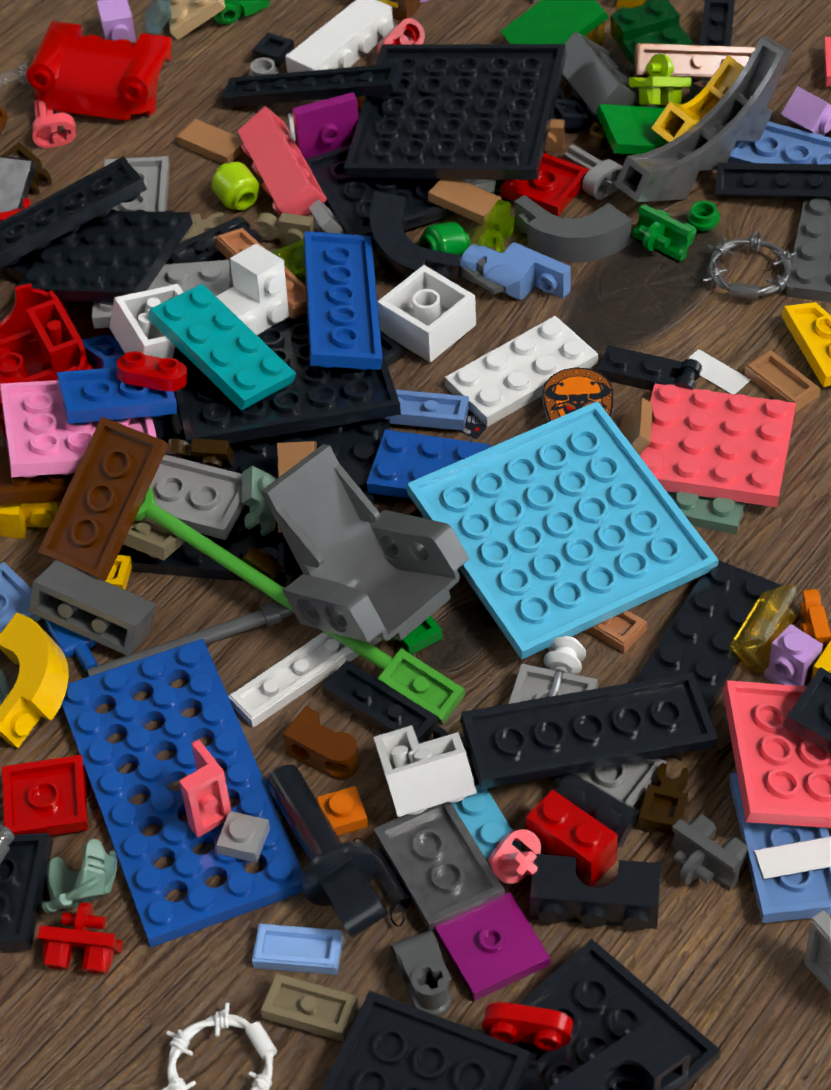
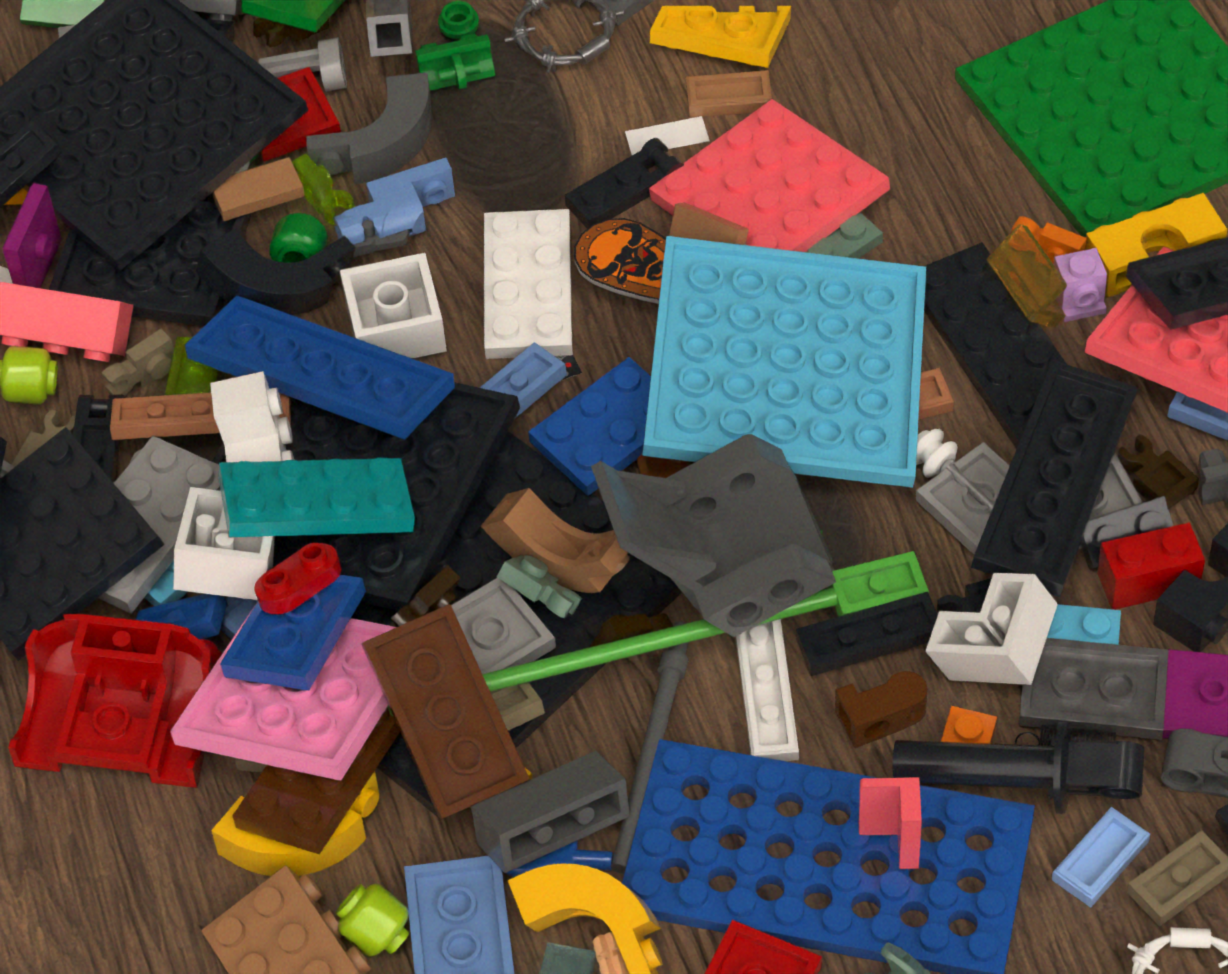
camera: 55 degrees left, 5 degrees up
(243, 836) = (953, 826): light grey plate -> none
(325, 219) = (170, 323): light grey plate -> none
(510, 863) = (1143, 625): coral piece -> none

